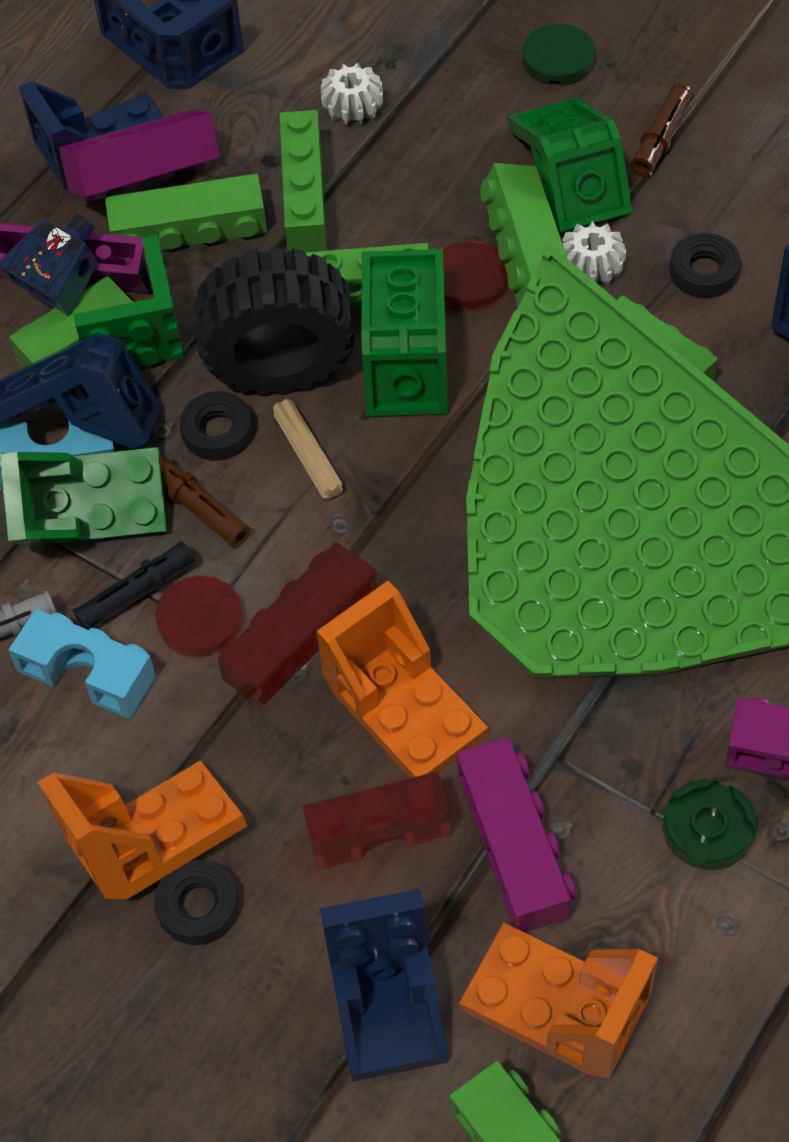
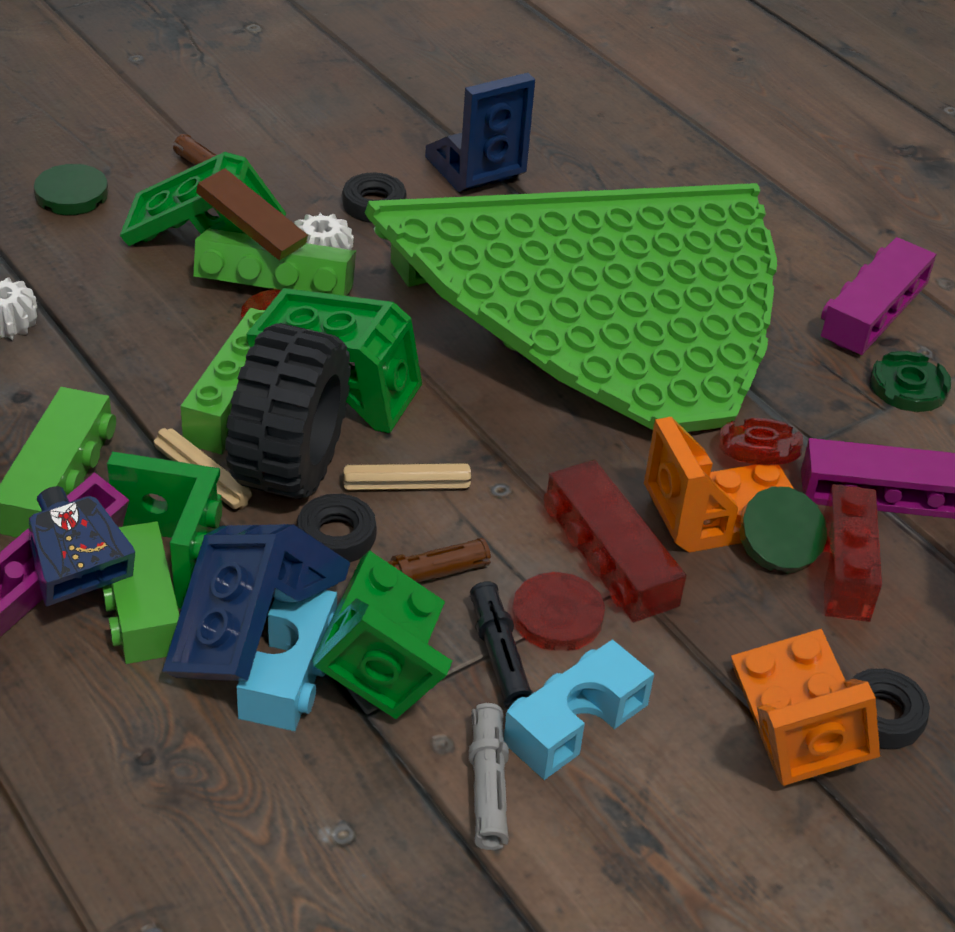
camera: 75 degrees left, 15 degrees down
(302, 181) = (53, 358): bright green brick -> none
(377, 750) = (783, 529): none -> dark green tile
(505, 704) = (761, 442): none -> clear red tile
(532, 180) = (252, 214): none -> reddish brown tile

